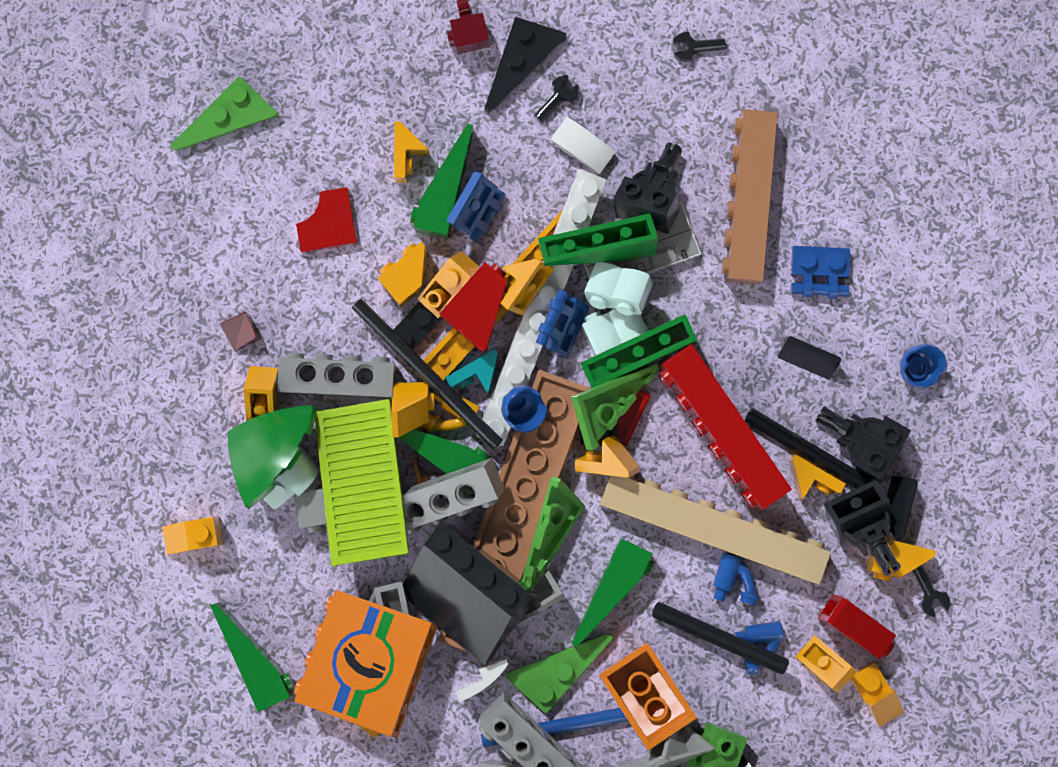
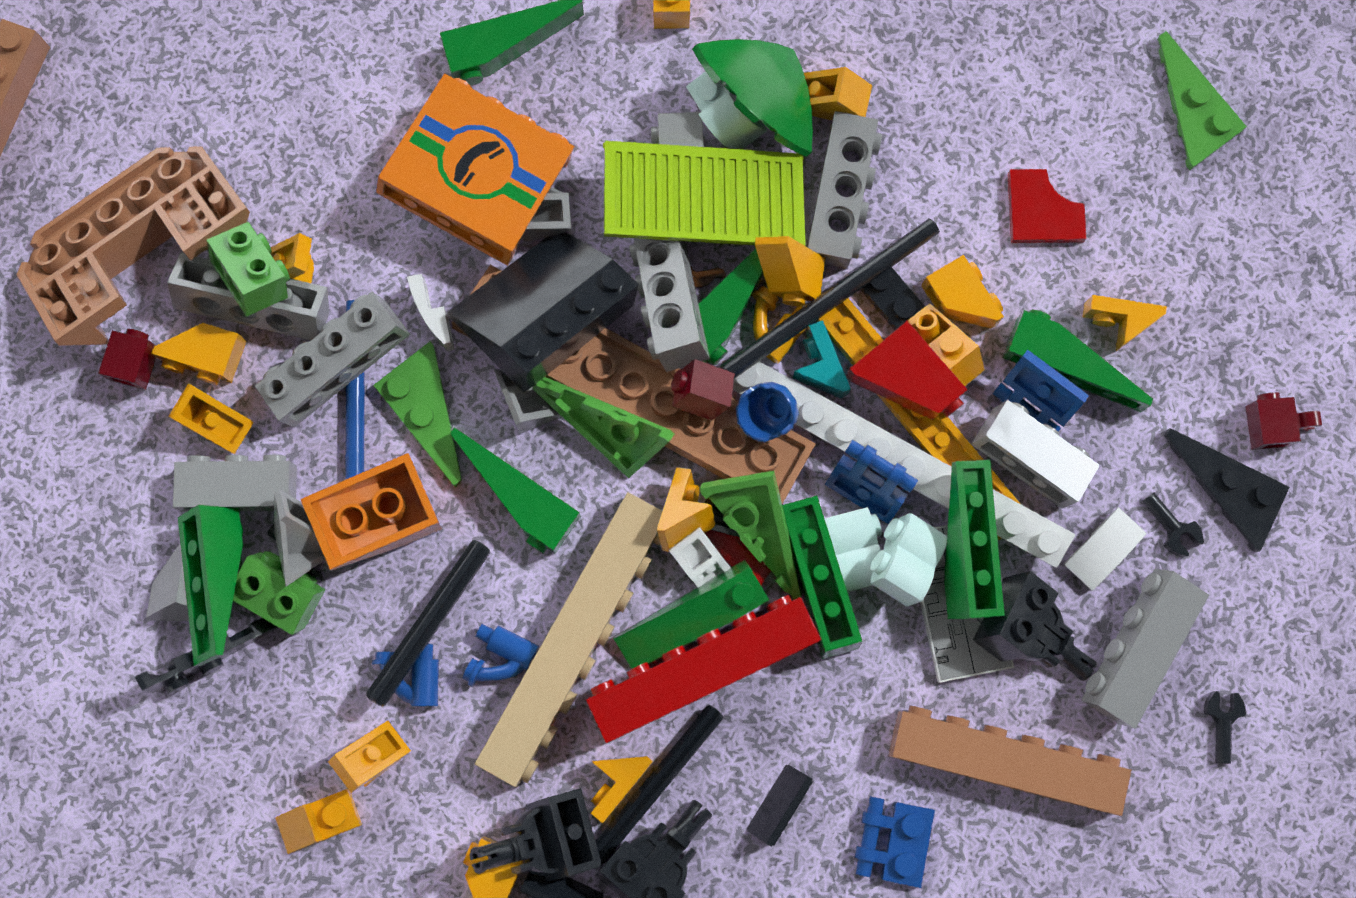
camera: 90 degrees right, 5 degrees down
(240, 331) = (918, 83): slope -> none
(515, 459) = (702, 389): none -> dark red brick
(521, 205) = (1035, 454): none -> brick
(530, 279) = (932, 442): light orange slope -> none
(645, 437) = (699, 557): none -> white slope
(652, 109) = (1144, 647): none -> light grey brick
(682, 440) = (693, 615): none -> green slope
(857, 626) = (409, 808): red slope -> none

